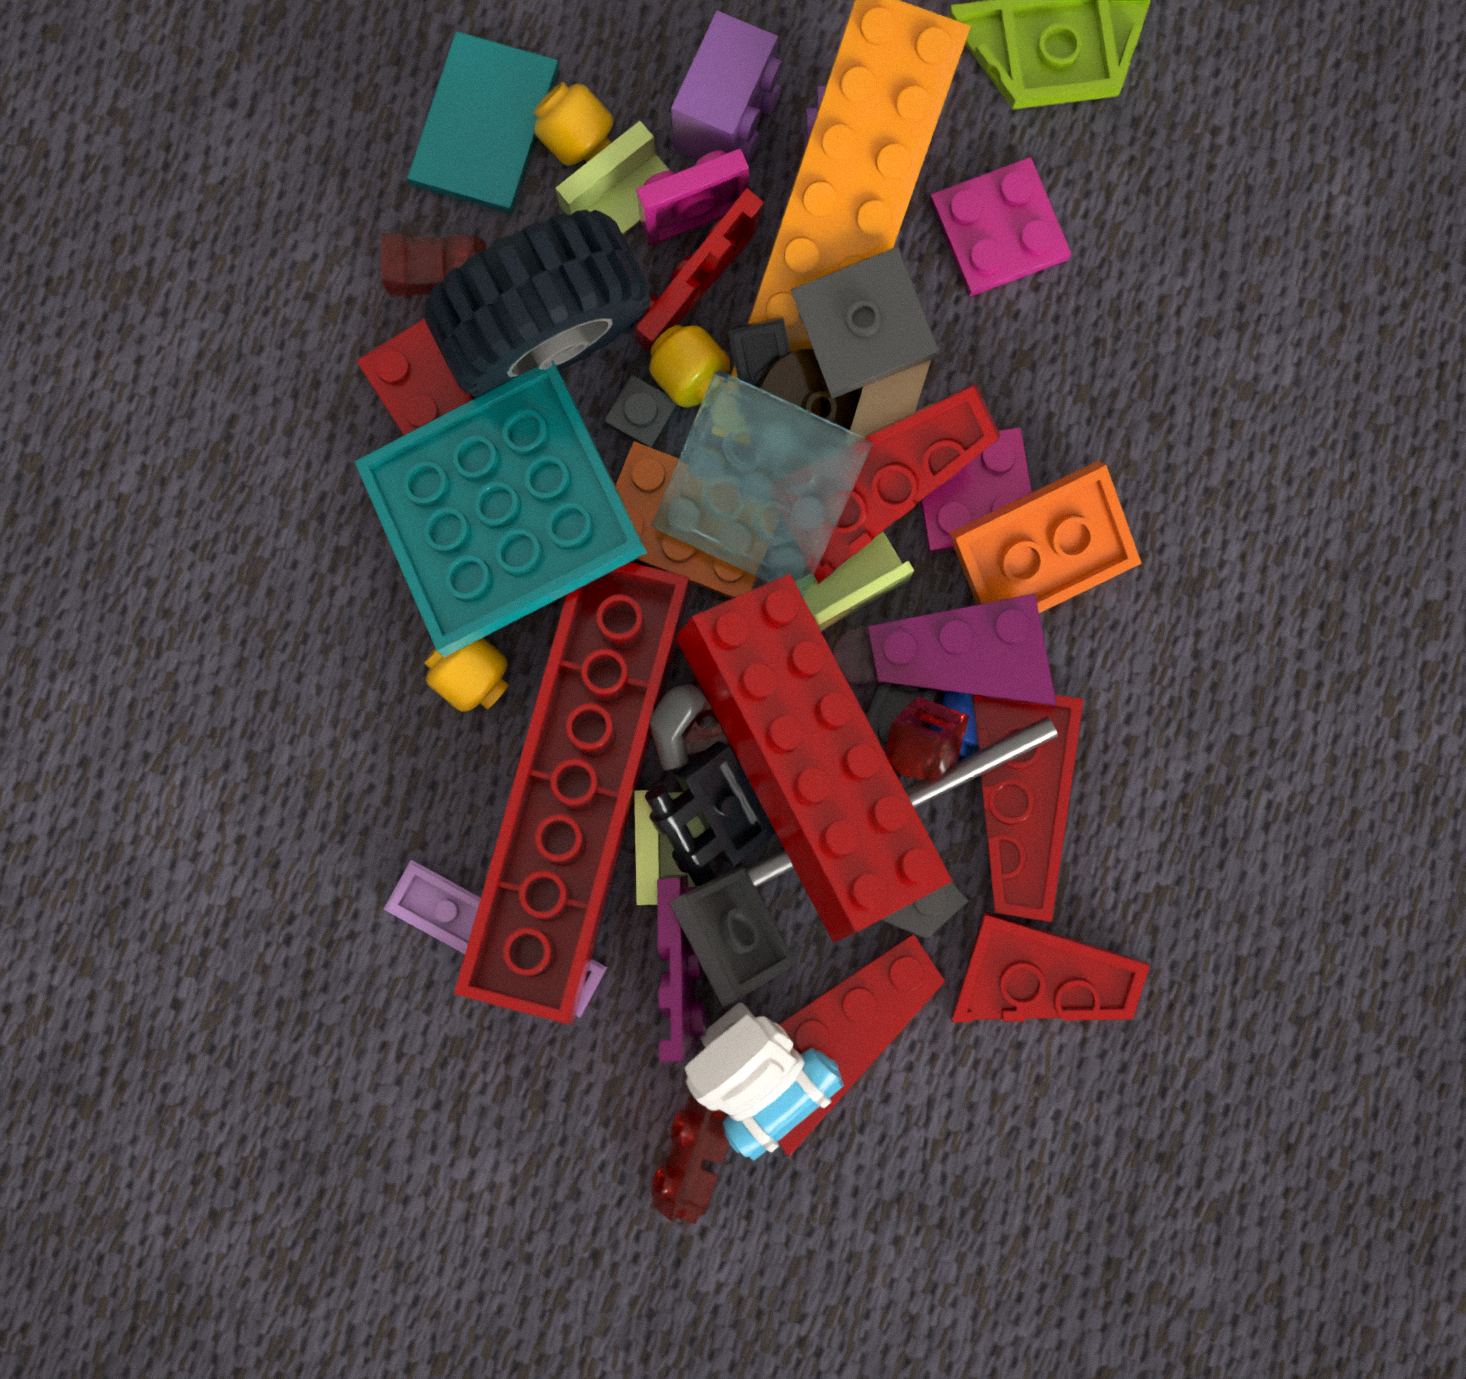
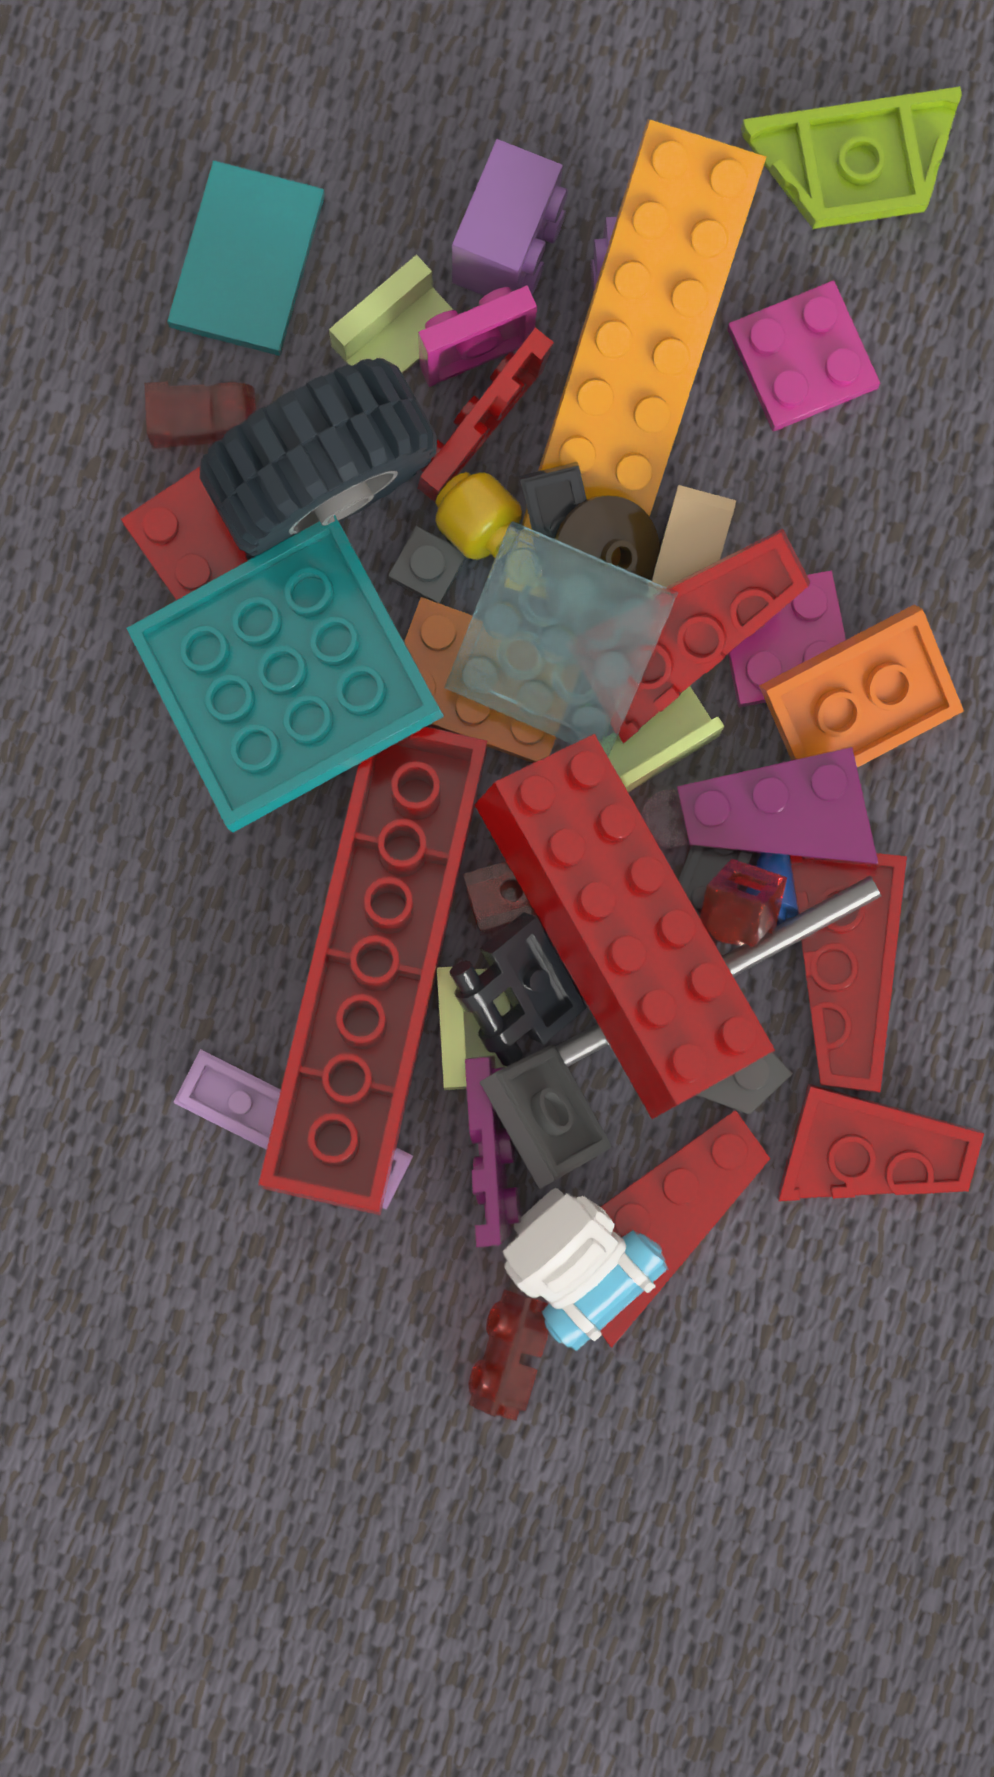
camera: 10 degrees left, 0 degrees up
(468, 675) = (255, 852): yellow head -> none
(572, 123) = (344, 258): yellow head -> none
(670, 721) = (474, 891): dark grey arm -> none
(865, 322) = (665, 467): dark grey plate -> none

